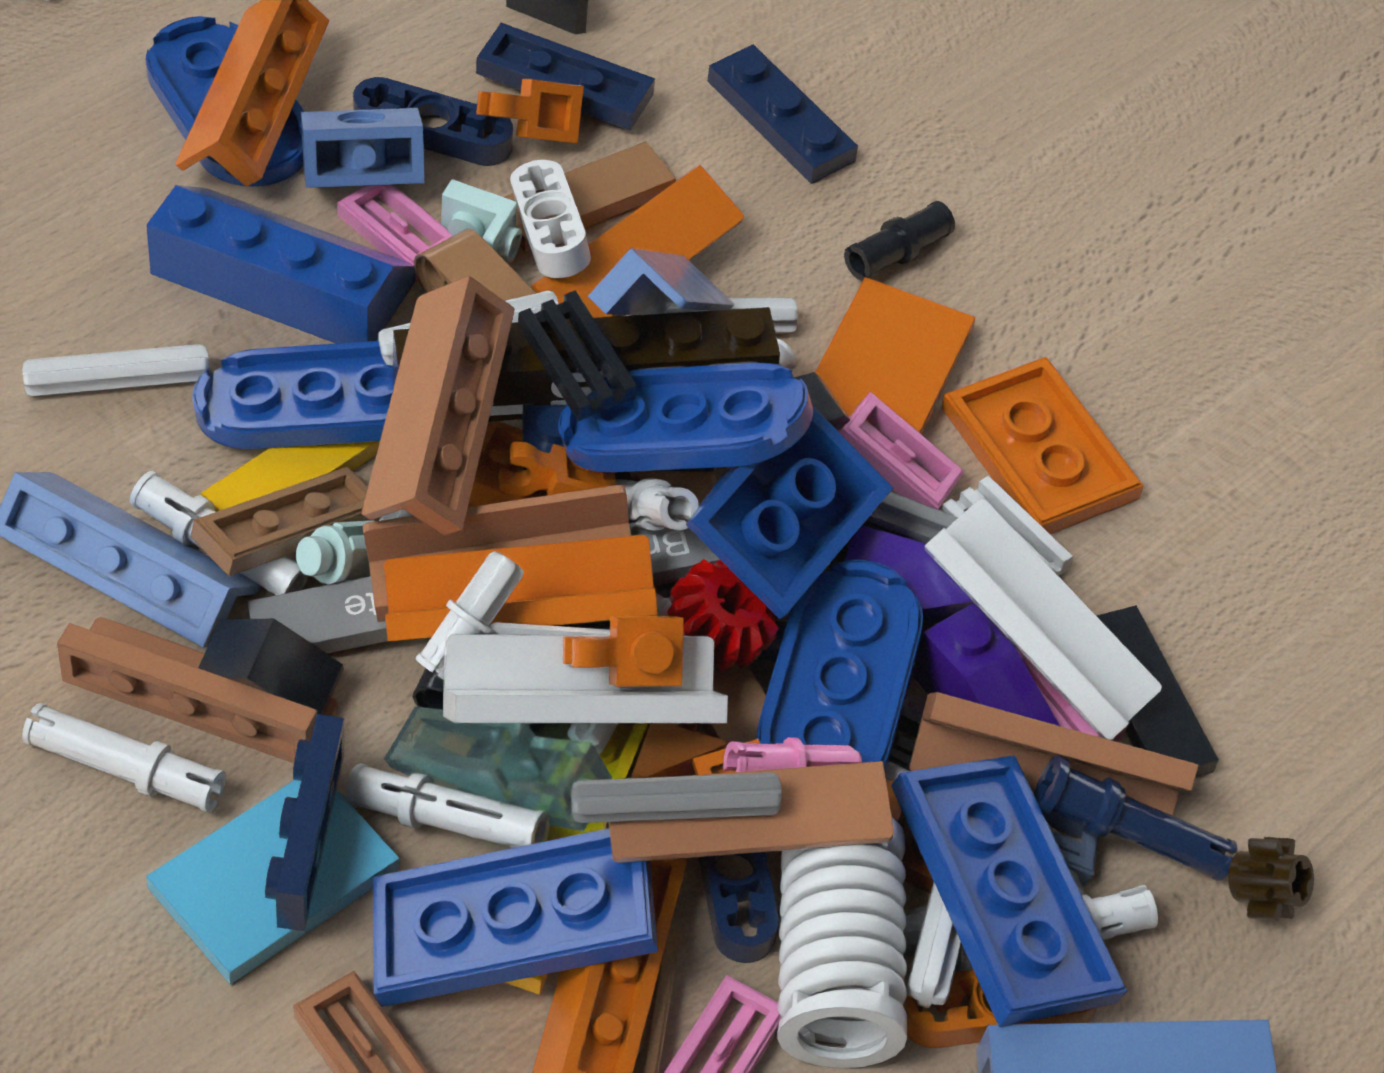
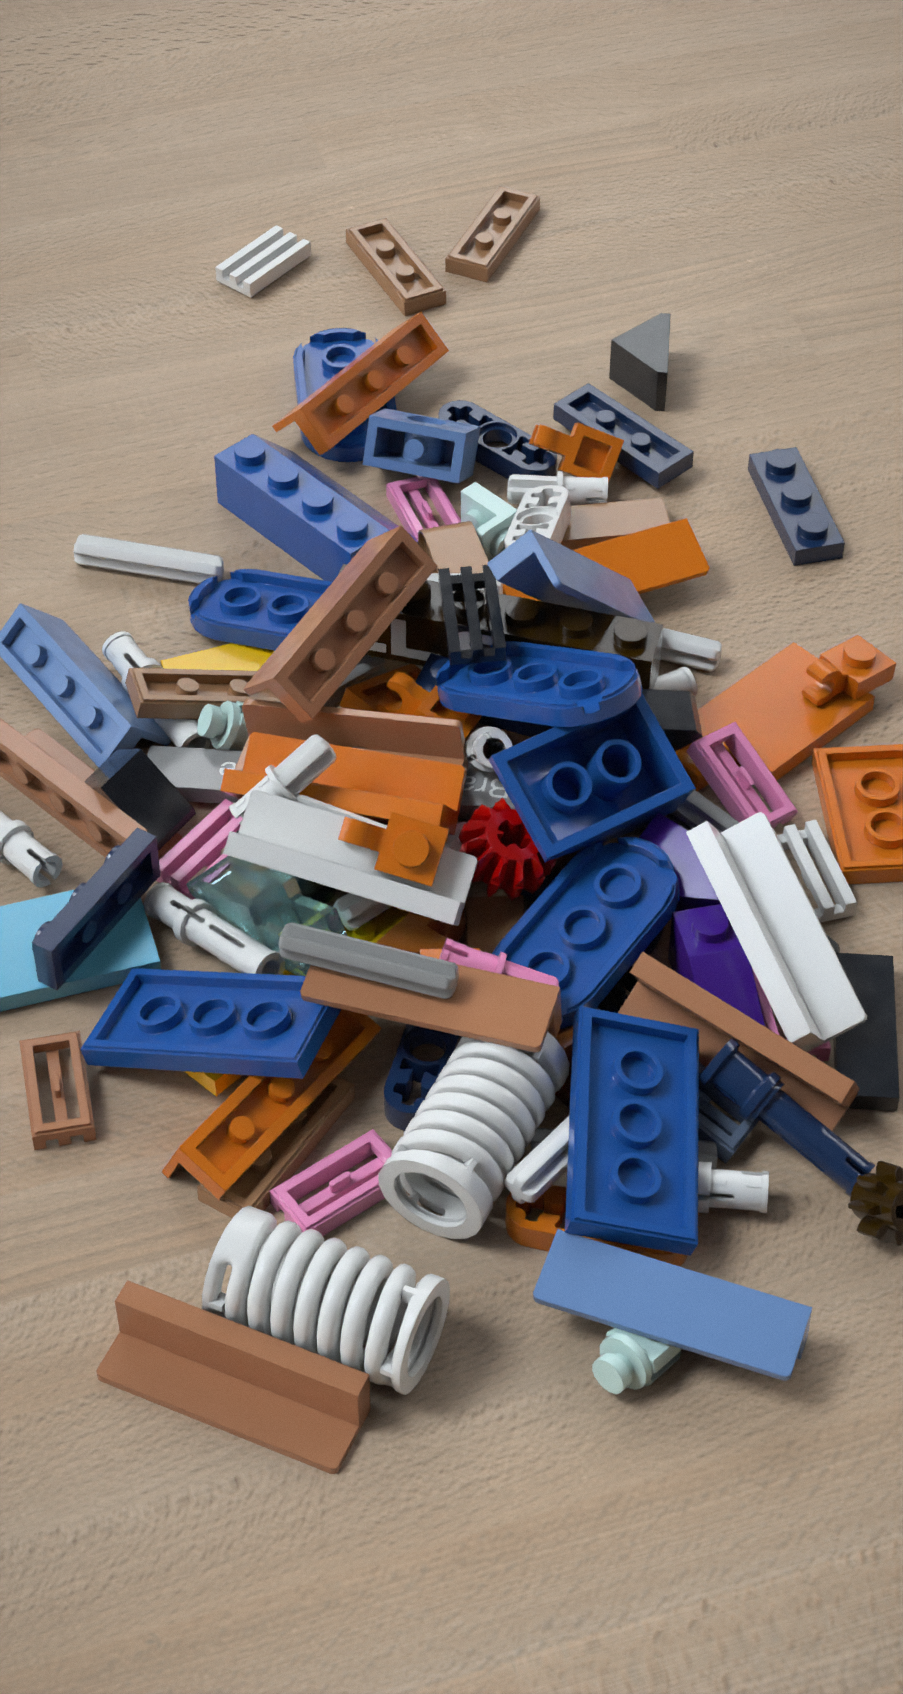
camera: 30 degrees right, 5 degrees down
(392, 665) = (198, 848): none -> bright pink tile
(496, 168) = (581, 489): none -> white axle
(899, 240) = (840, 622): black pin -> none
(940, 293) = (850, 668): none -> orange plate

